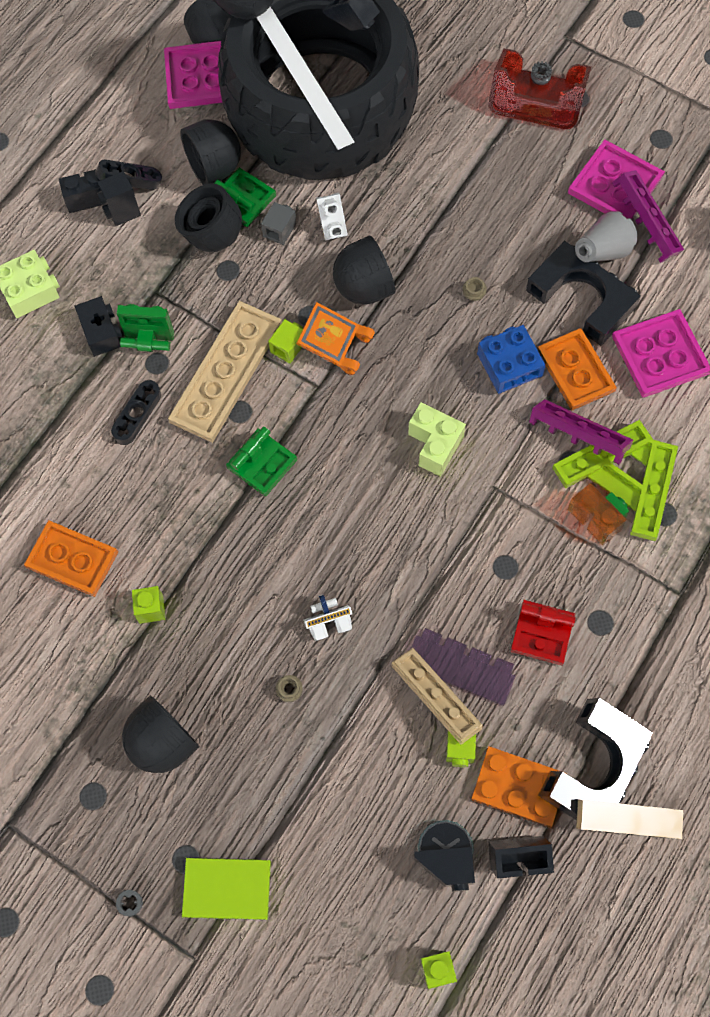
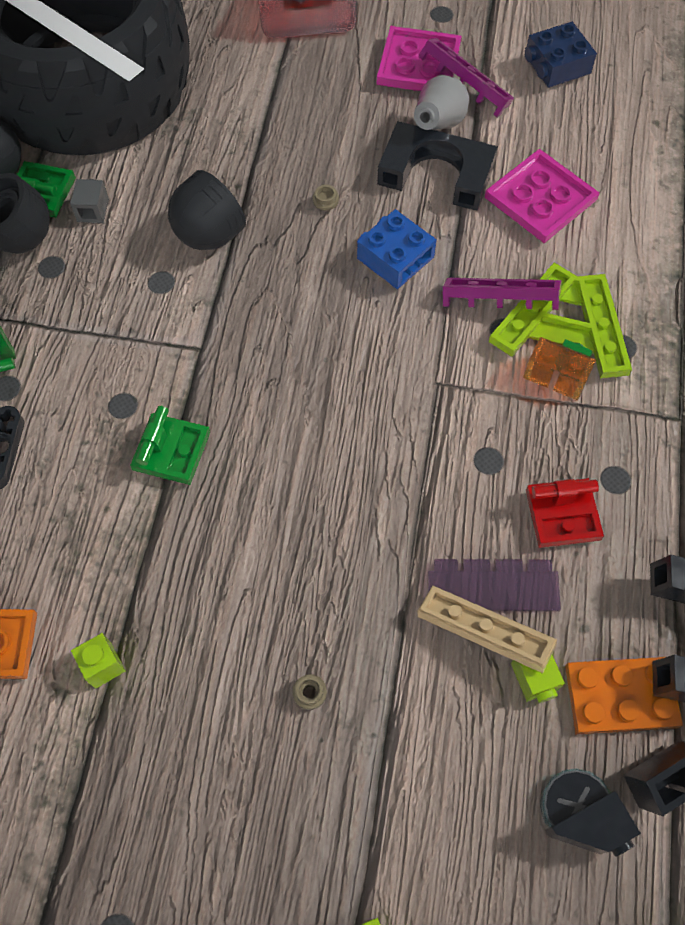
camera: 25 degrees left, 5 degrees down
(156, 739) = (171, 825): black piece -> none
(225, 372) = (89, 370): tan plate -> none
(284, 341) = (147, 312): lime brick -> none
(331, 216) = (145, 175): white hips -> none
(331, 335) = (195, 290): orange flag -> none
(340, 616) = (333, 583): white hips -> none
(439, 433) = (355, 347): yellowish green brick -> none
(576, 369) = (468, 238): orange plate -> none

